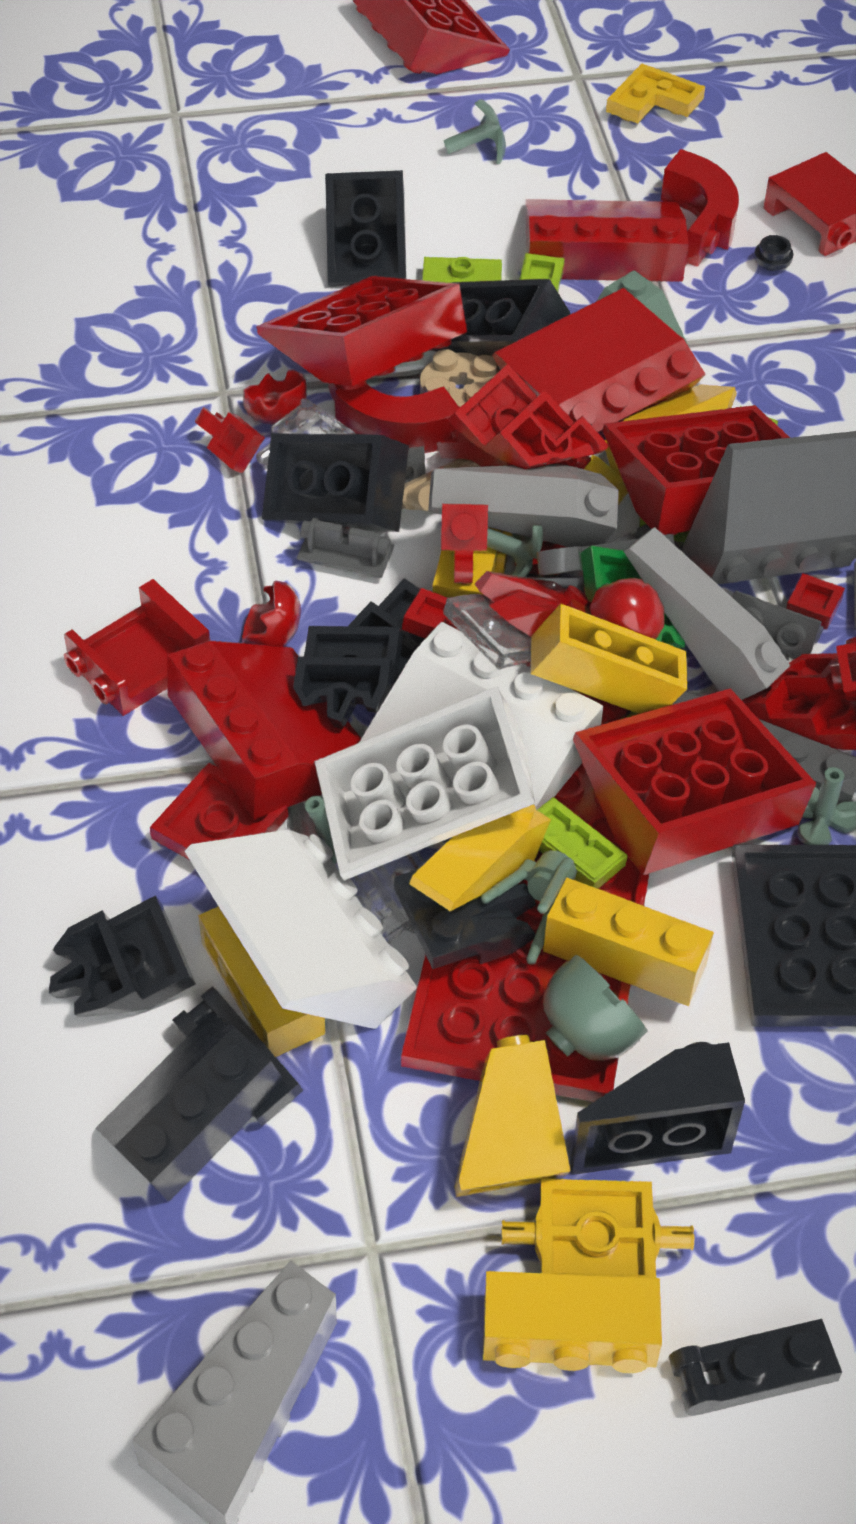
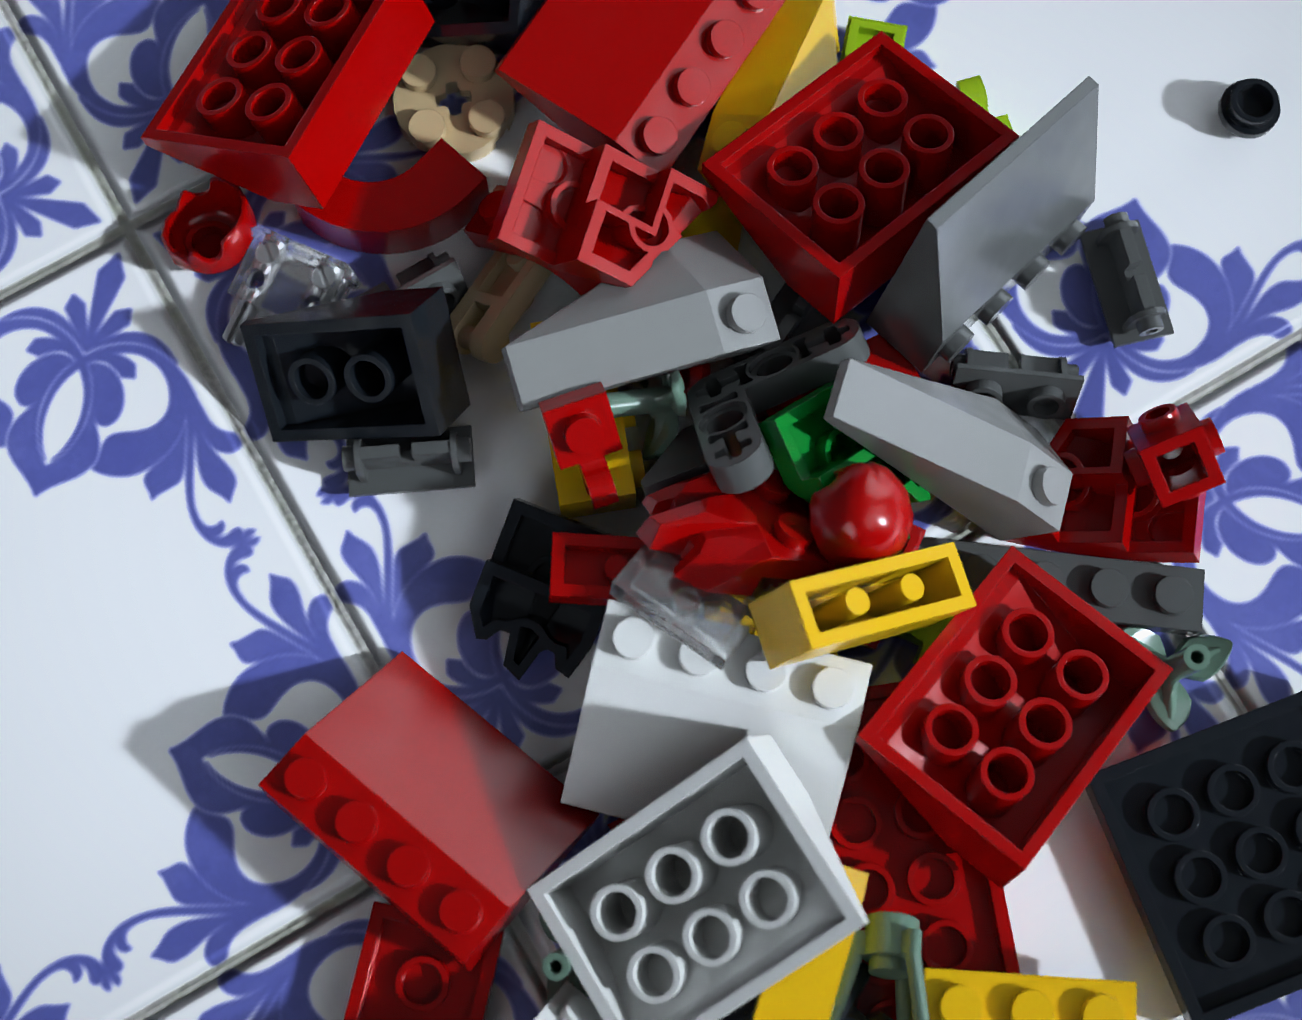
camera: 20 degrees left, 25 degrees up
(130, 655) = (200, 745): red panel -> none
(232, 438) = (178, 322): red plate -> none
(276, 620) = (360, 628): red hair -> none
(348, 668) = (502, 697): black plate -> none
(592, 853) = (902, 871): lime plate -> none
(816, 599) = (1053, 324): red plate -> none

